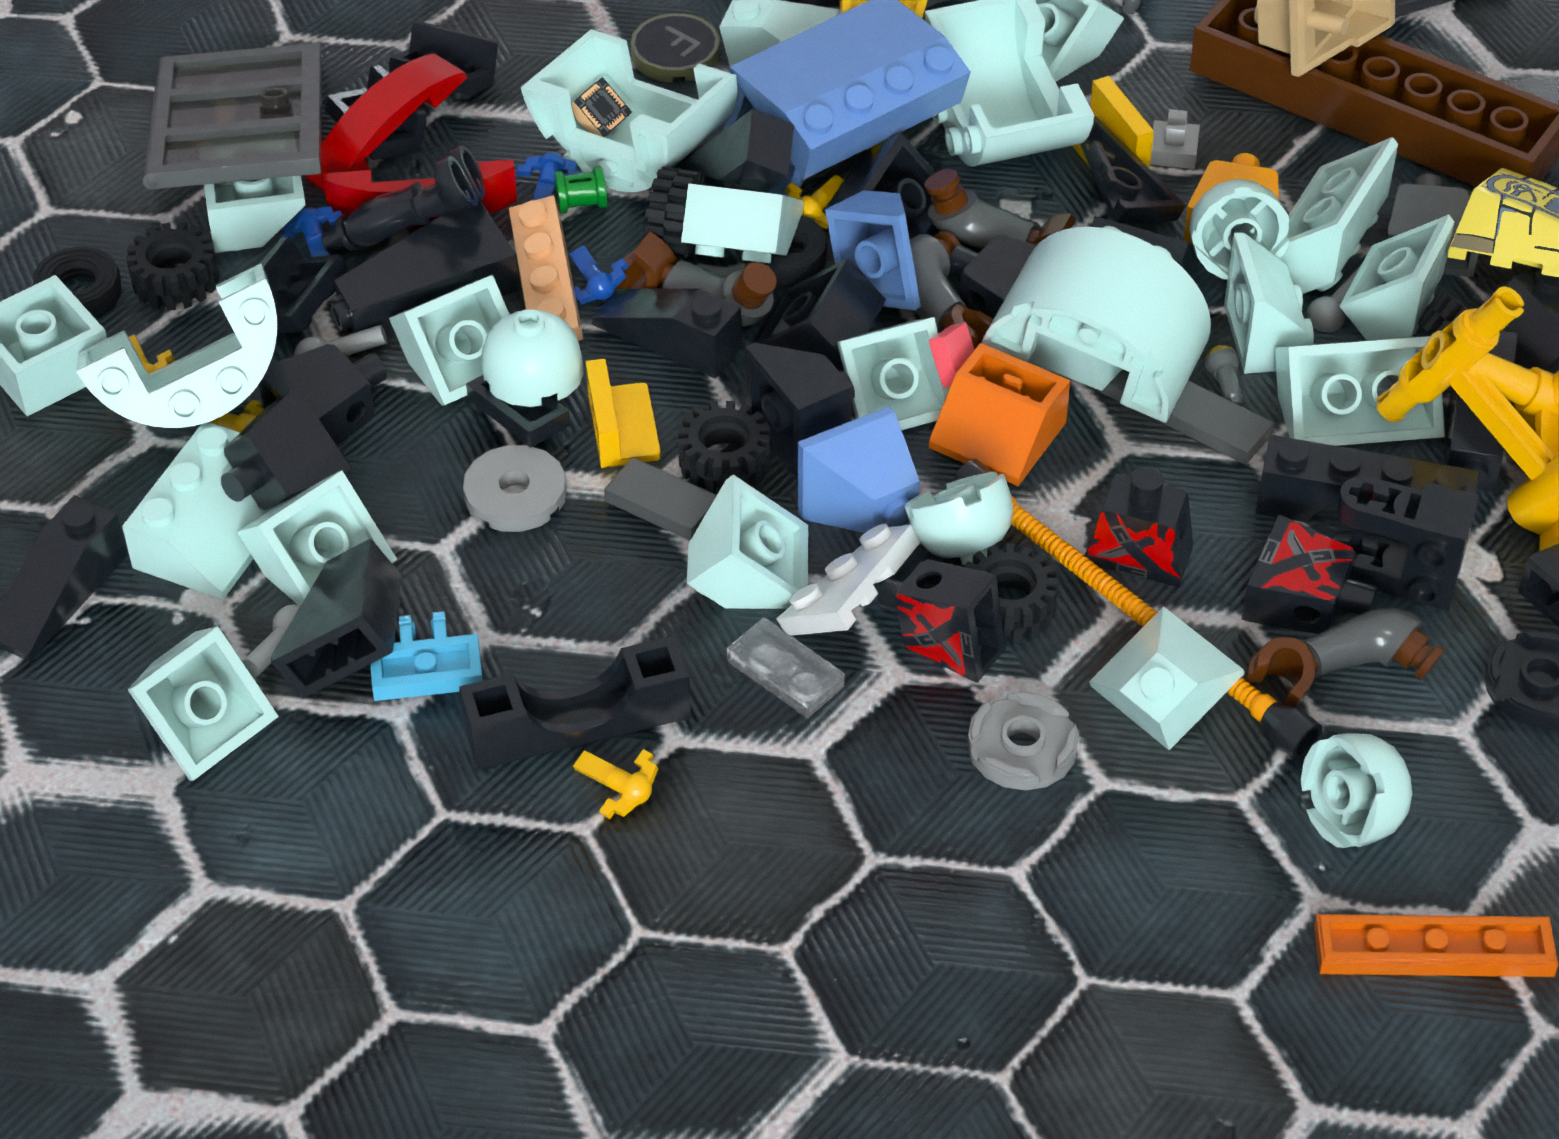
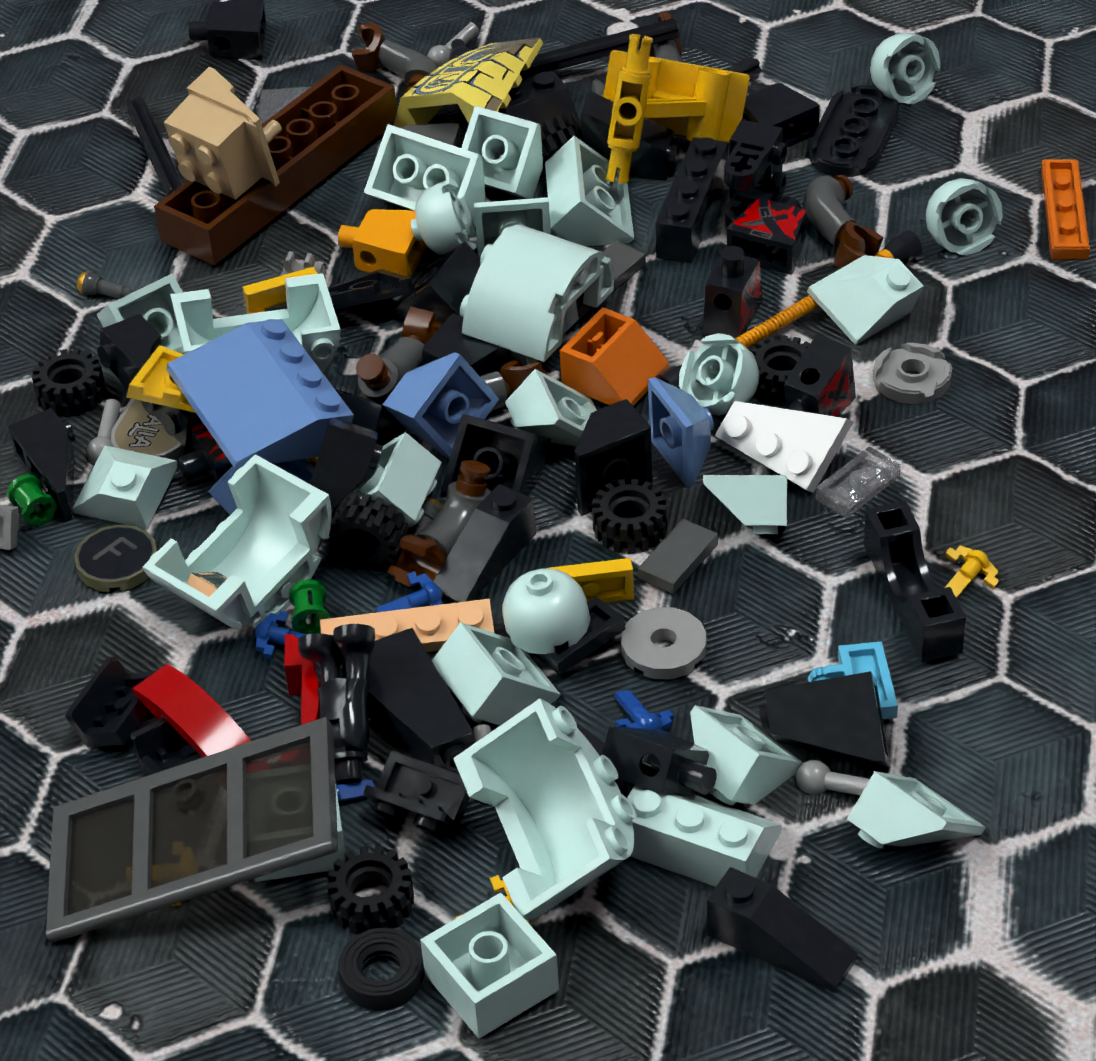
camera: 85 degrees left, 5 degrees down
(382, 475) = (640, 714): none -> blue piece
(951, 351) = (561, 371): coral tile -> none

